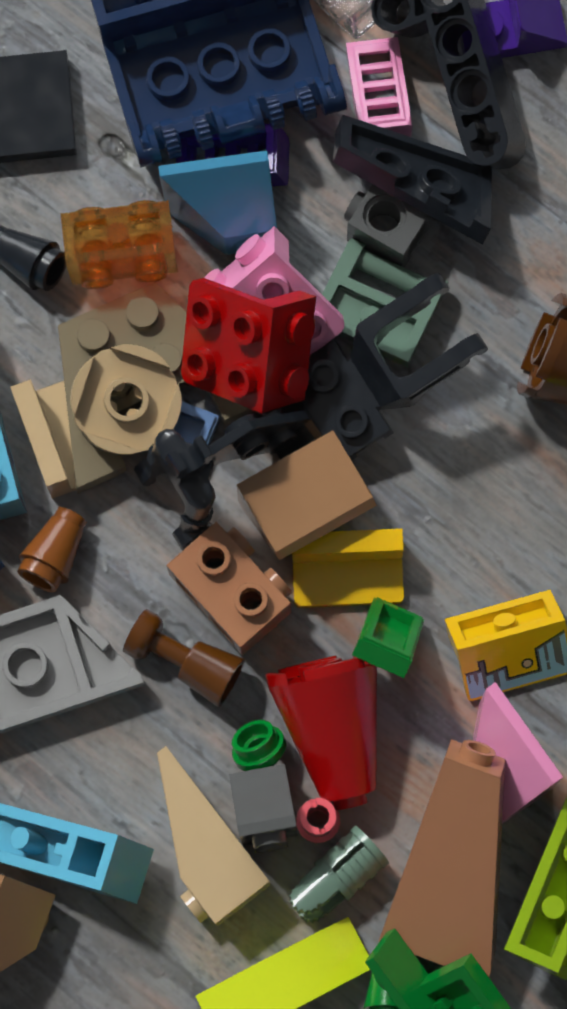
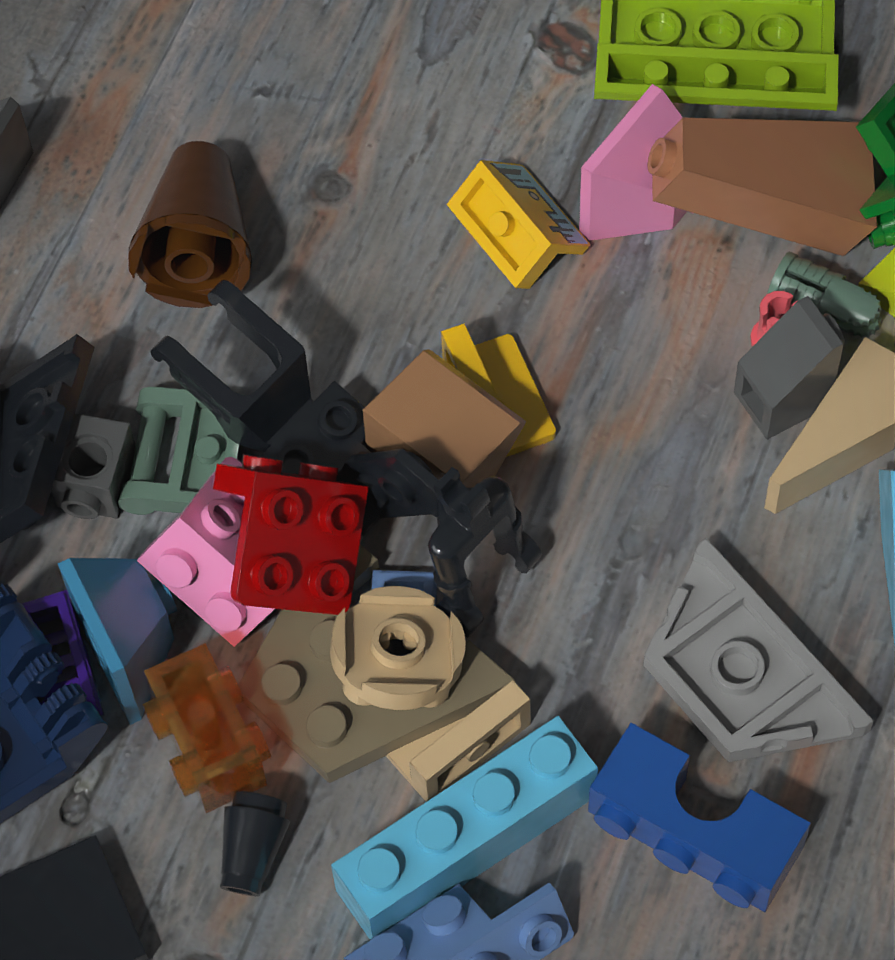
camera: 110 degrees left, 15 degrees down
(52, 551) = (594, 687): dark orange cone -> none
(203, 667) = (663, 492): reddish brown piece -> none
(227, 589) = (570, 480): nougat brick -> none
(258, 745) = (710, 415): green plate -> none
(333, 724) = (664, 342): red cone -> none
(388, 637) = (563, 308): green tile -> none

